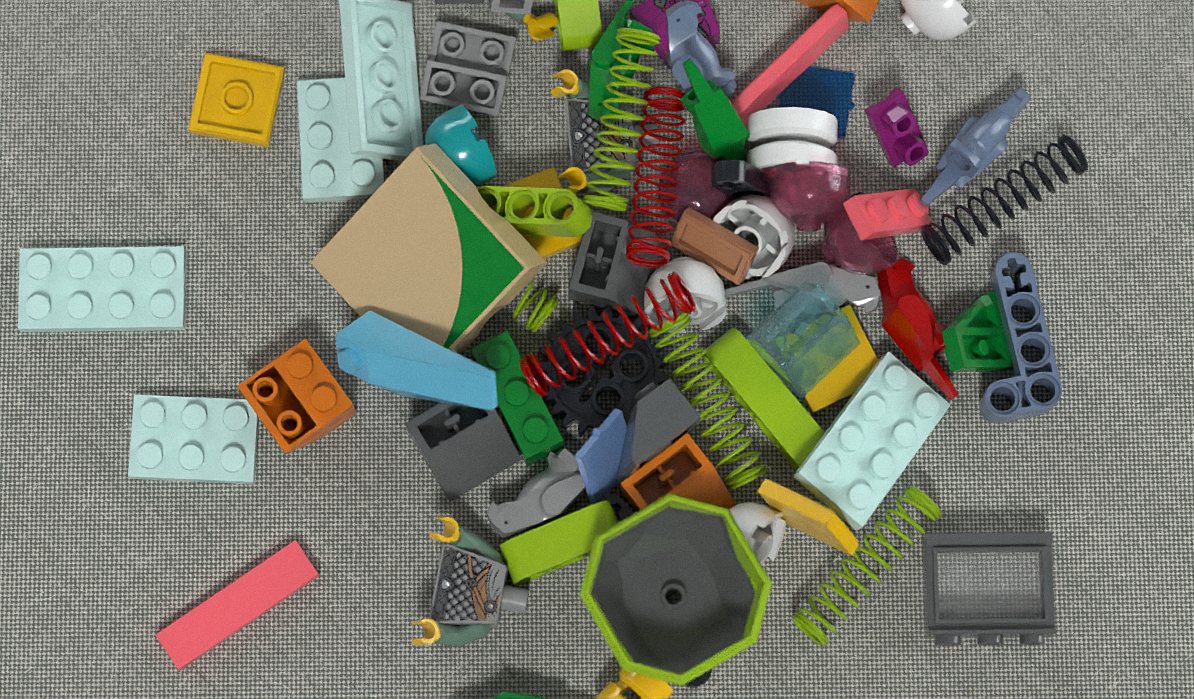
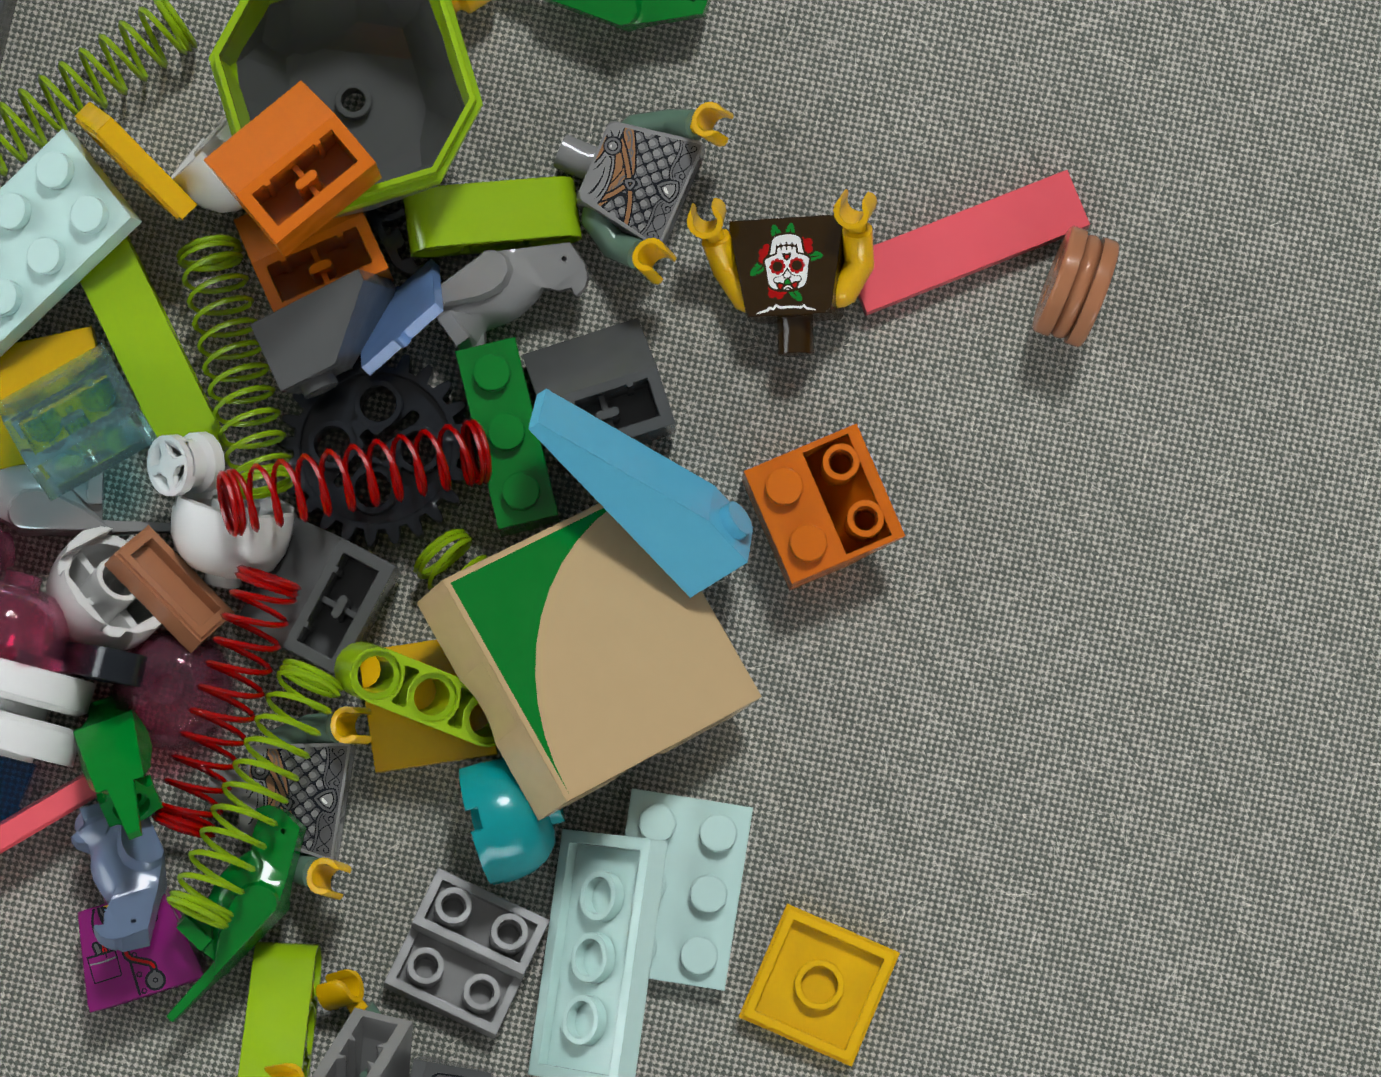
camera: 170 degrees left, 5 degrees up
(102, 289) = (1071, 741): light aqua plate -> none
(155, 583) = (1076, 286): none -> nougat head
(193, 439) = (983, 491): light aqua plate -> none
(353, 553) = (791, 266): none -> torso
(693, 509) = (294, 167): none -> orange slope
(722, 323) = (185, 463): none -> white wheel

